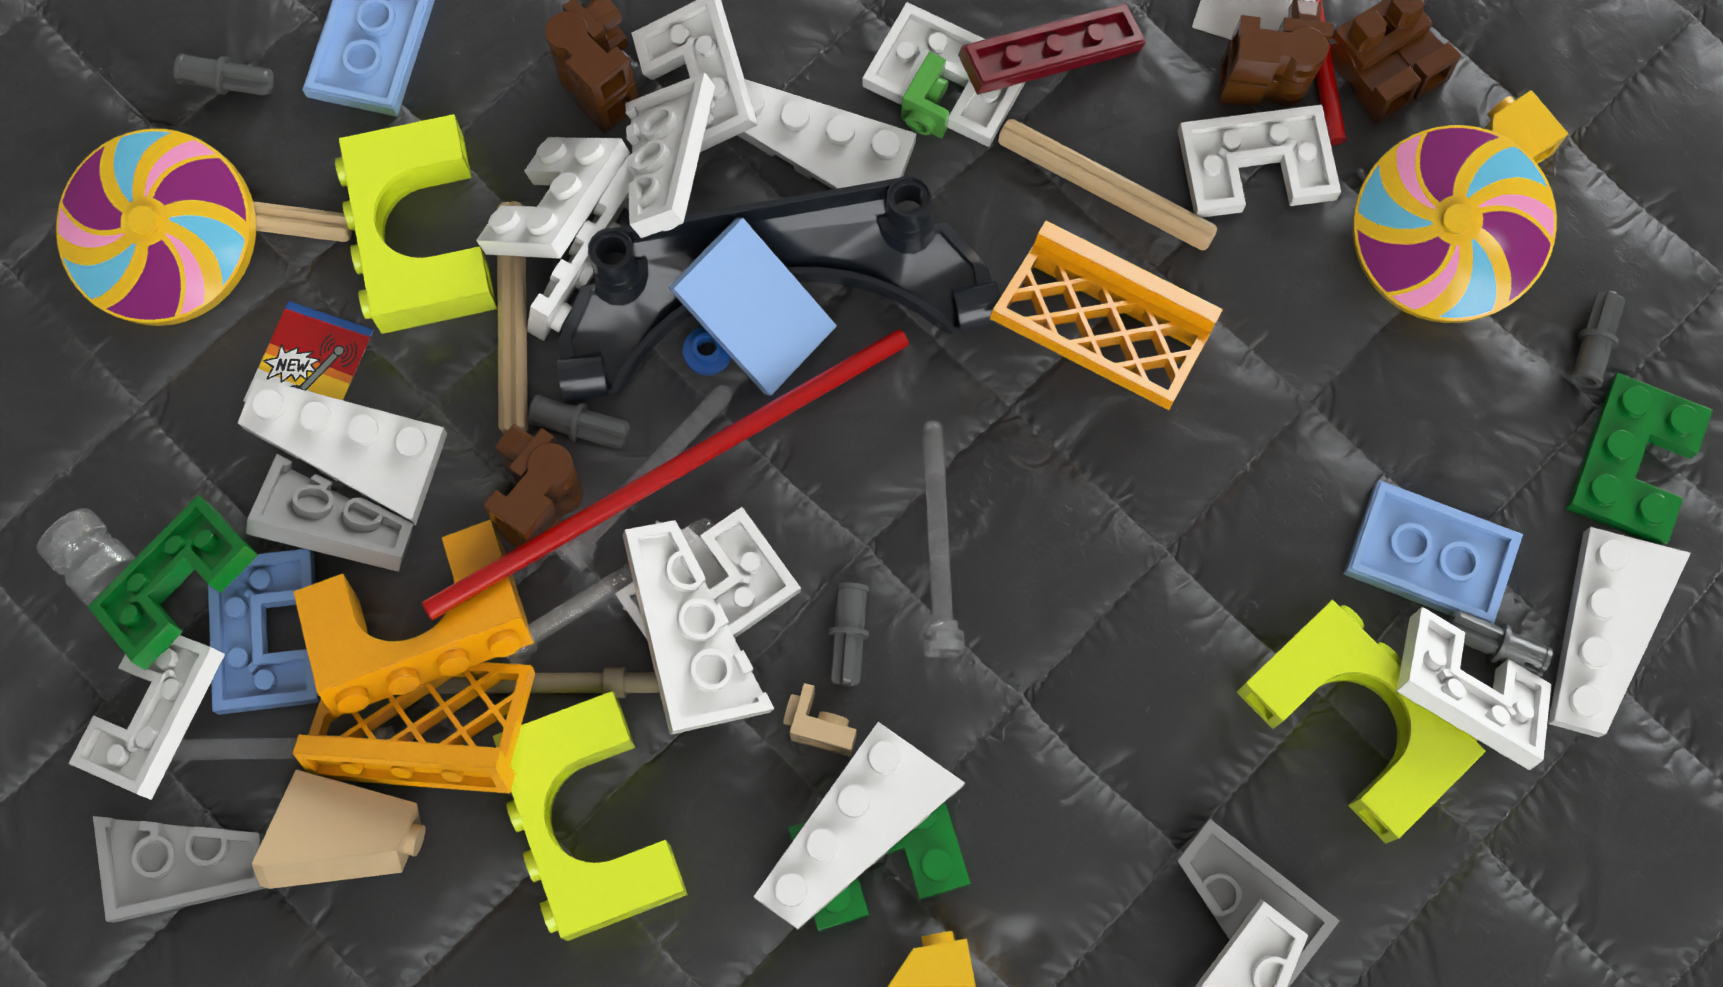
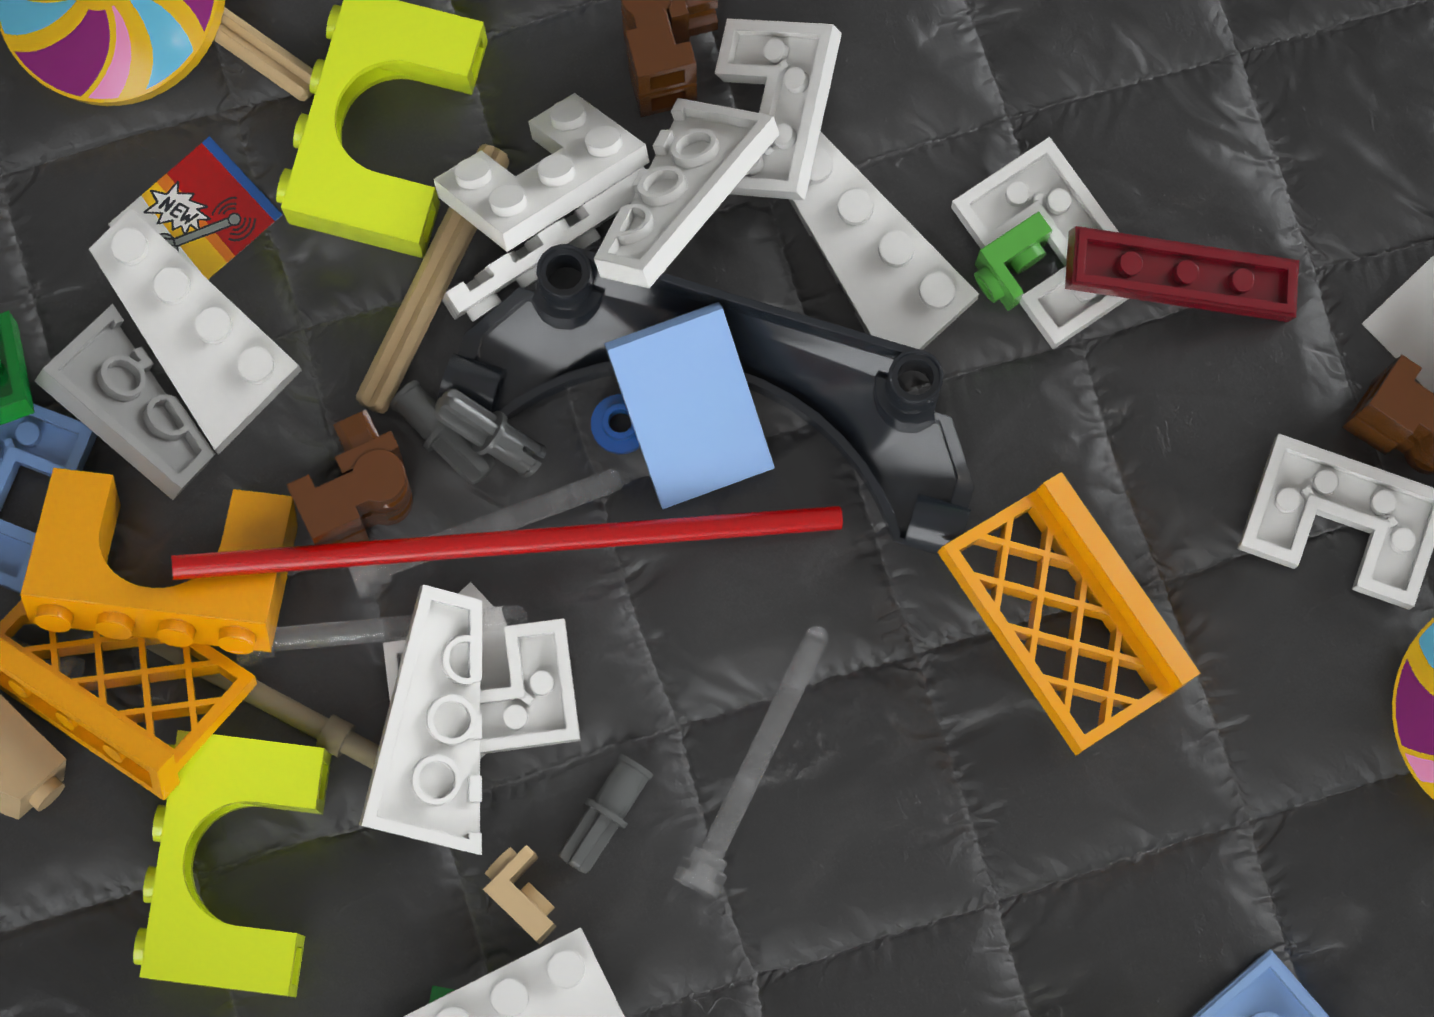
camera: 30 degrees right, 5 degrees up
(614, 401) = (489, 432): none -> dark grey axle
(1107, 184) = (1160, 460): tan axle -> none

